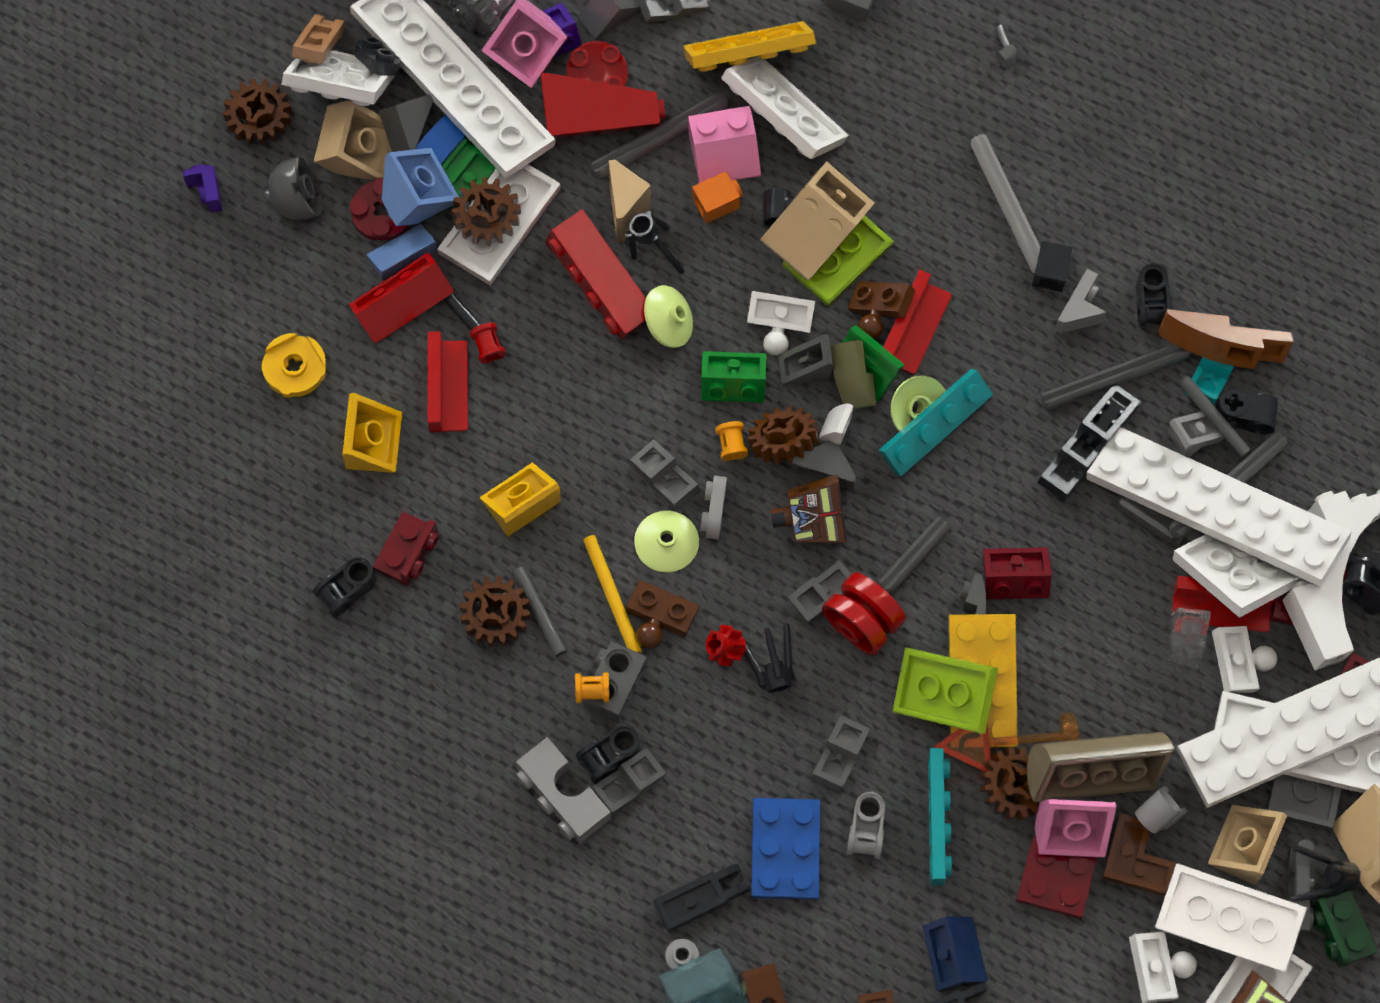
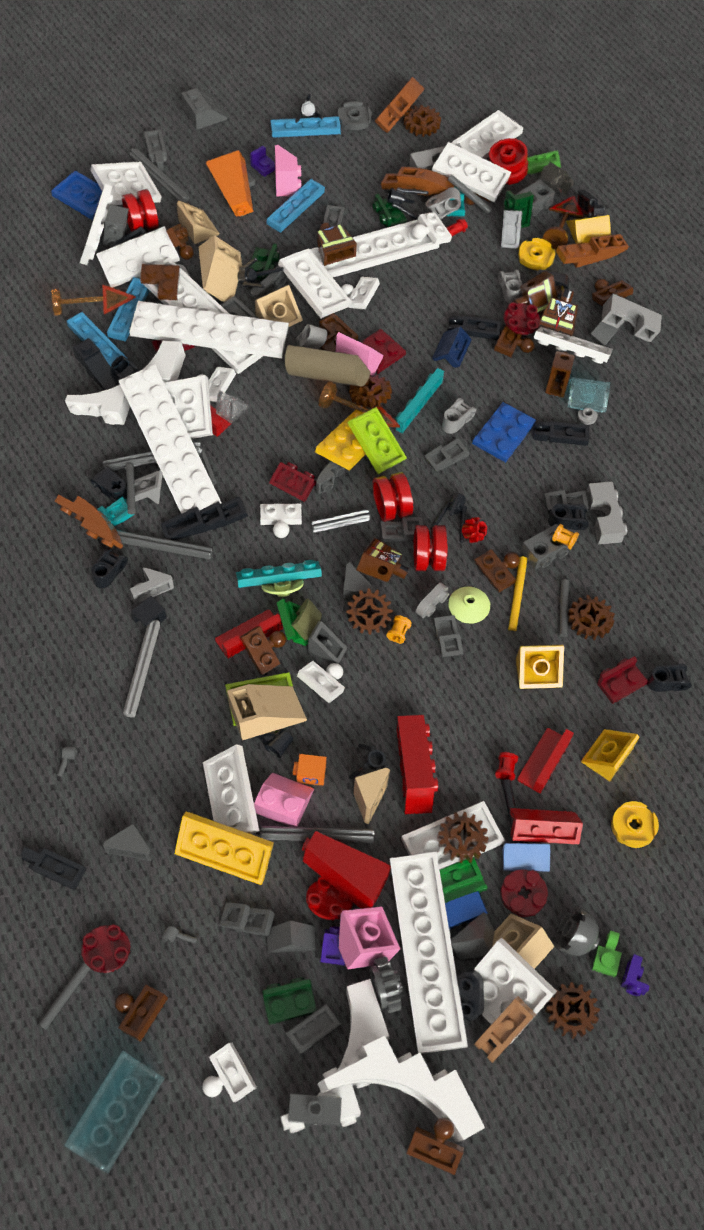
camera: 150 degrees left, 10 degrees down
(246, 195) = (606, 958): none -> bright green plate
(415, 186) = (498, 878): medium blue slope -> none
(668, 316) = (389, 714): yellowish green dish -> none
(733, 377) = (372, 664): green bracket -> none
(764, 566) = (430, 547): none -> red wheel
(836, 424) = (339, 594): white slope -> none
(997, 513) = (280, 516): none -> white plate

